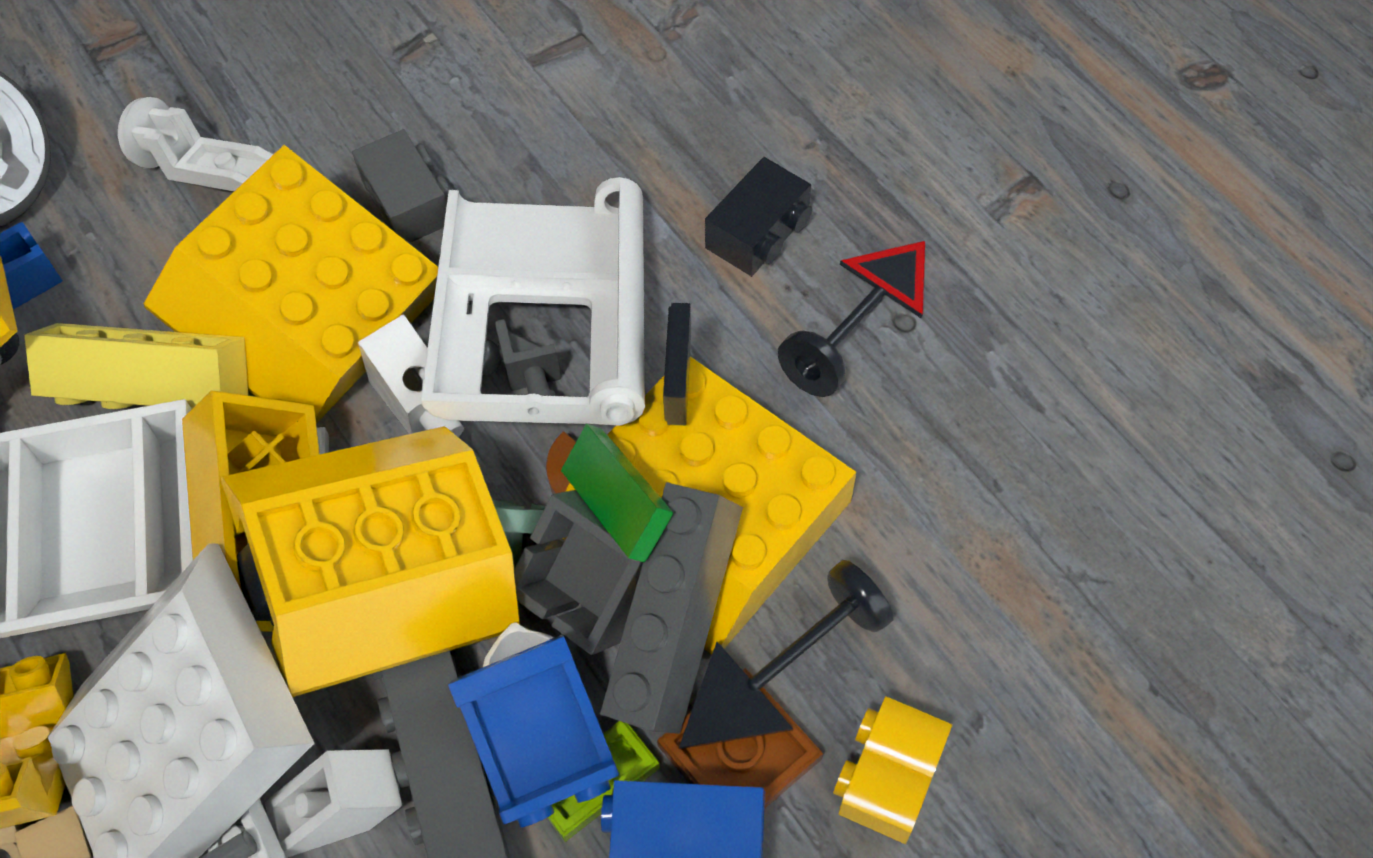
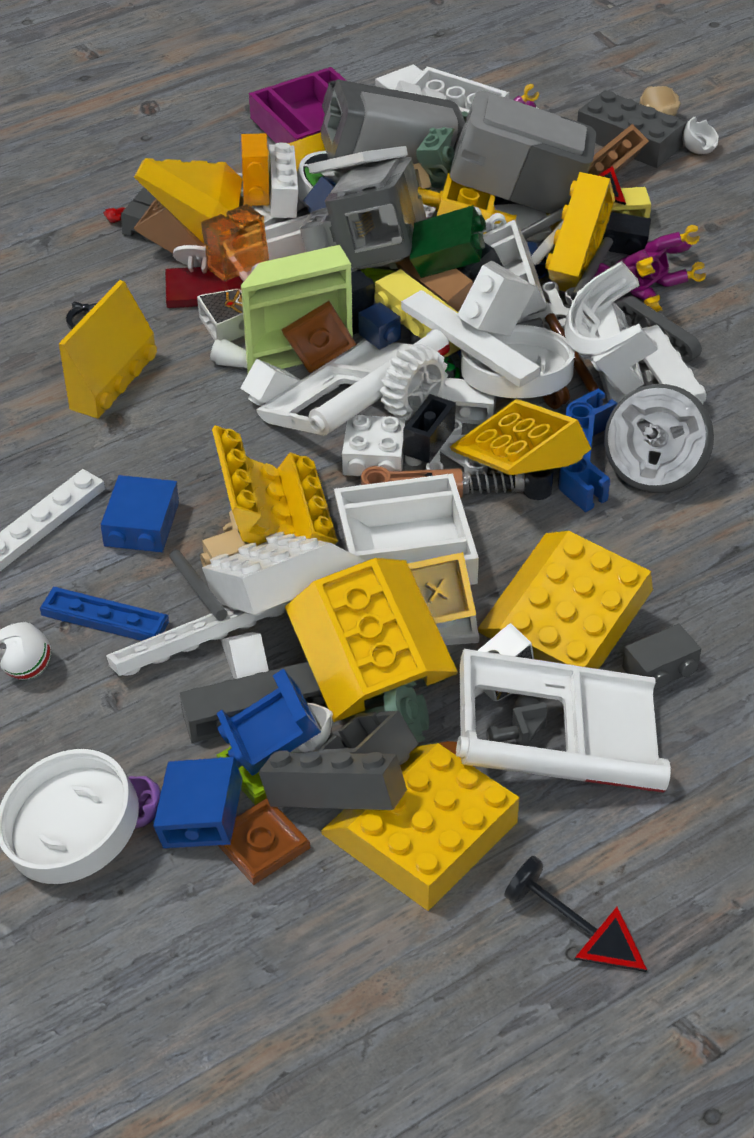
camera: 90 degrees right, 15 degrees down
(132, 365) = (507, 542): light yellow brick -> none
(166, 138) = (689, 532): white piece -> none
(616, 493) = (400, 741): green tile -> none
(677, 364) = (496, 777): black tile -> none
(732, 703) = (288, 828): black piece -> none
(758, 216) = (652, 856): black brick -> none
(893, 770) = (238, 910): yellow brick -> none

